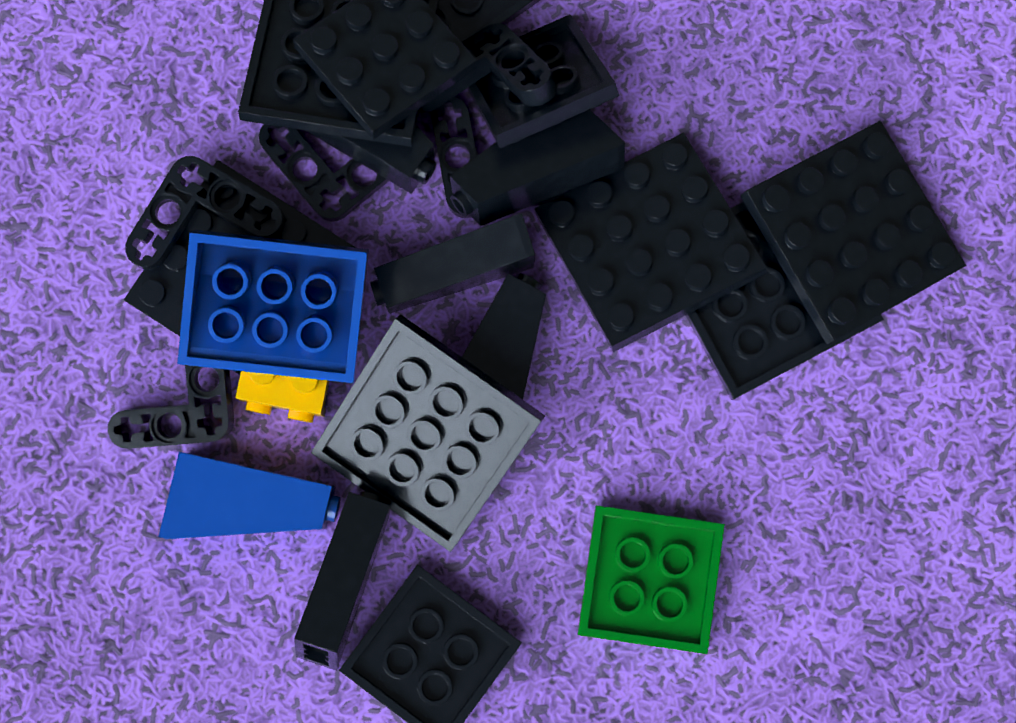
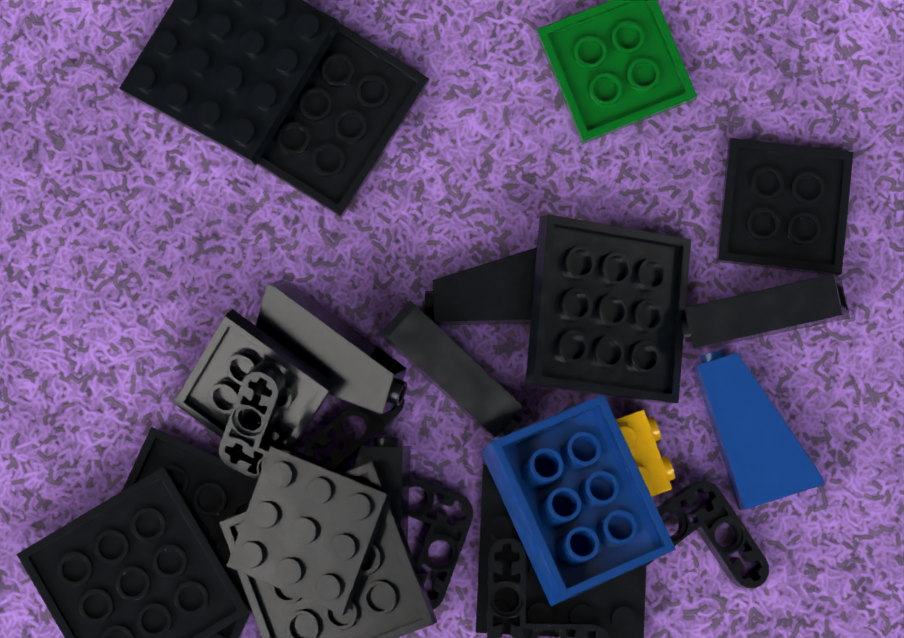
camera: 120 degrees left, 0 degrees up
(650, 242) = (336, 219): black plate -> none

